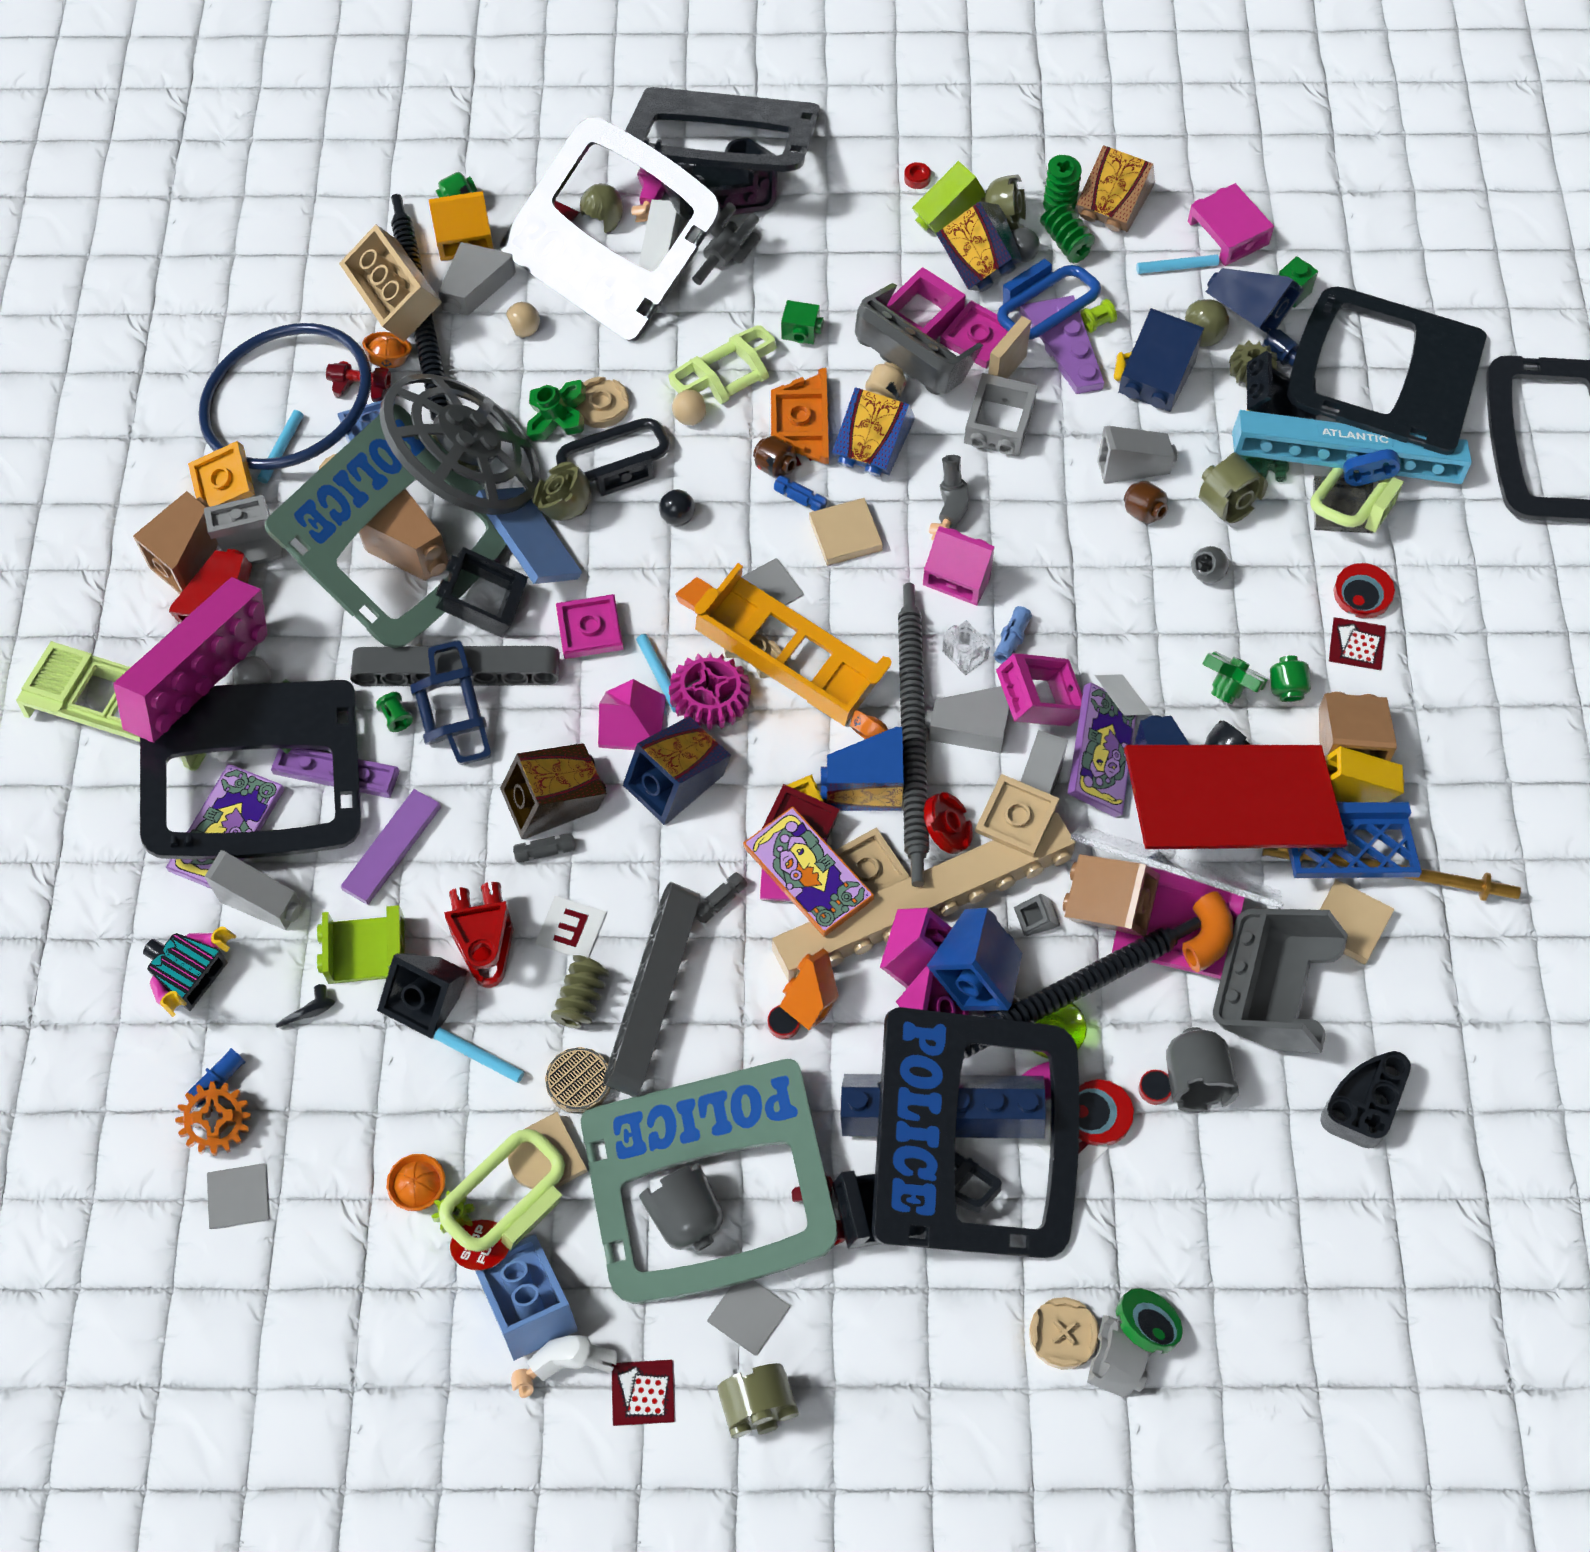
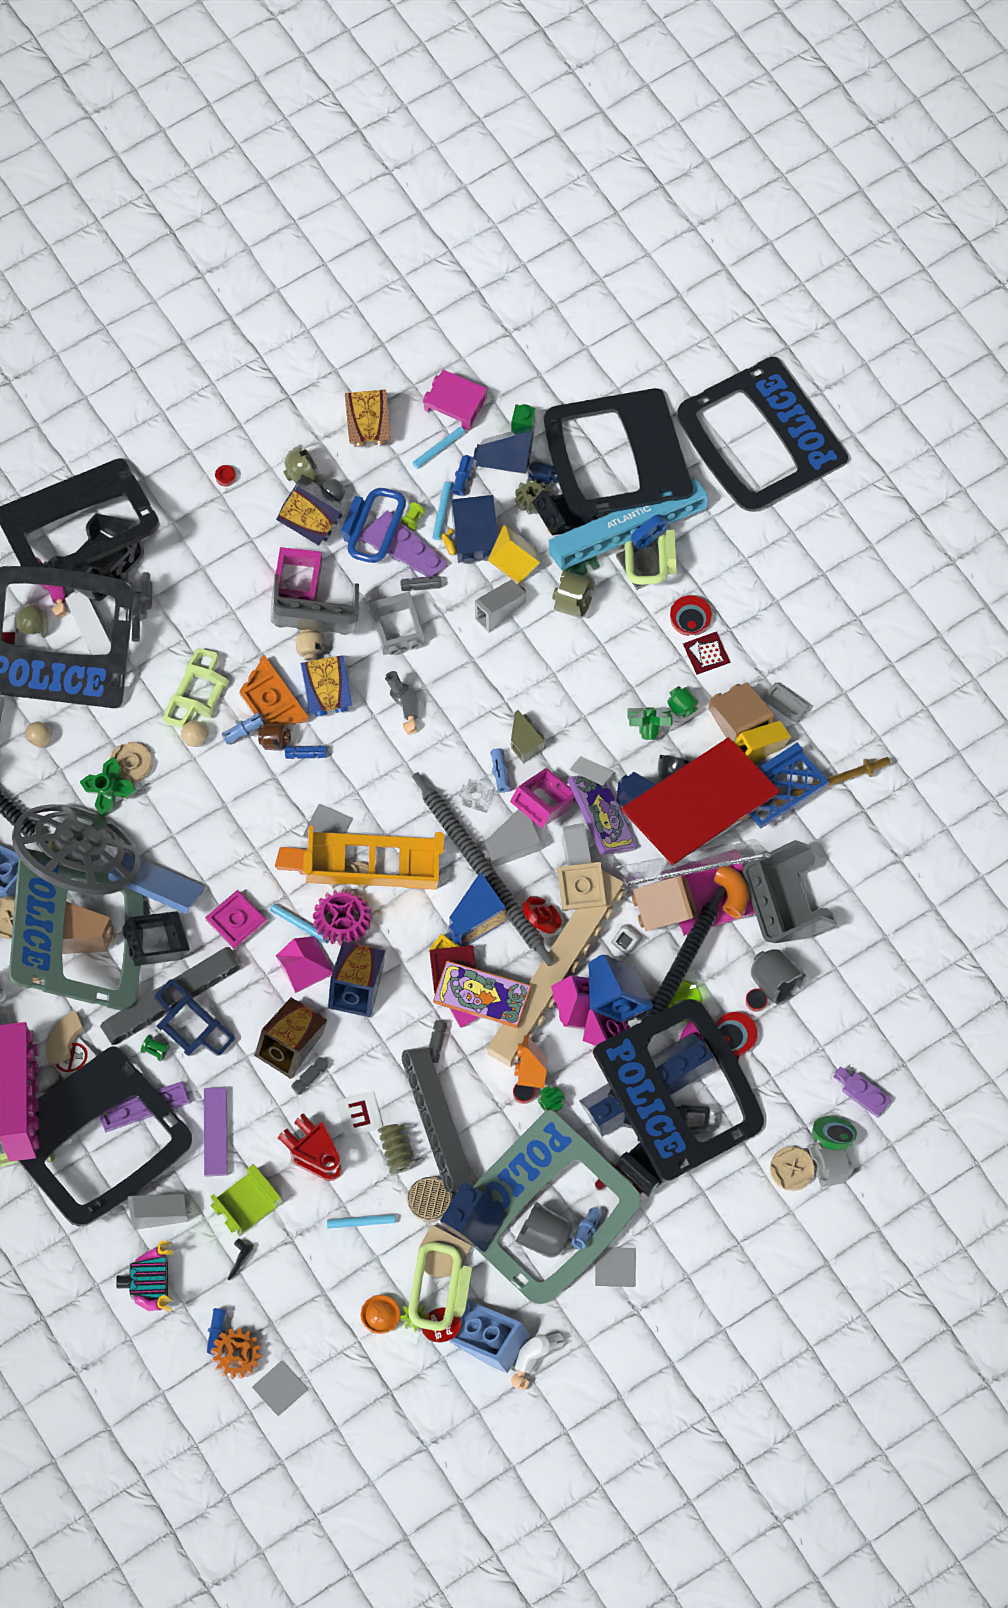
camera: 35 degrees left, 5 degrees up
(235, 804) = (100, 1170): tile -> none
(298, 666) = (80, 1056): none -> sticker
(304, 642) = (62, 1037): none -> tan tile
(421, 991) = (302, 1206): black slope -> none
(563, 493) = (157, 841): olive cylinder -> none
(604, 1131) = (473, 1217): none -> dark blue slope
(627, 471) = (180, 806): black bar -> none
(642, 1392) = (587, 1345): sticker -> none
(677, 507) = (236, 808): black piece -> none
(742, 1238) = (587, 1228): none -> medium blue pin
(746, 429) = (243, 728): none -> medium blue pin
(757, 1400) = (655, 1307): olive brick -> none
(801, 322) = (225, 631): green brick -> none
(809, 1049) = (551, 1099): none -> green gear
(845, 531) = (351, 760): tan tile -> none
(866, 725) = (456, 883): orange hat -> none
(872, 861) = (512, 964): tan tile -> none
(948, 198) = (263, 486): lime slope -> none
(958, 565) = (440, 745): dark pink slope -> none
(974, 326) = (341, 573): dark pink tile -> none
(1010, 350) = (377, 576): tan tile -> none
(1060, 389) = (421, 583): none -> dark grey axle
(1062, 181) = (331, 434): green piece -> none
(1065, 615) = (525, 740): none -> olive slope
(1068, 232) = (355, 465): green piece -> none
(1132, 333) = (442, 510): none -> medium azure bar
(1146, 502) = (525, 633): reddish brown head -> none
(1184, 301) = (462, 475): none -> blue axle
(1187, 411) = (513, 555): none -> yellow slope
(1209, 564) = (590, 653): dark grey piece -> none
(1212, 317) = (485, 481): olive hair -> none
(1224, 1292) = (863, 1092): none -> medium lavender plate
(1357, 1100) = (871, 940): black beam -> none
(1359, 916) = (807, 828): tan tile -> none
(1423, 753) = (786, 702): none -> light grey tile

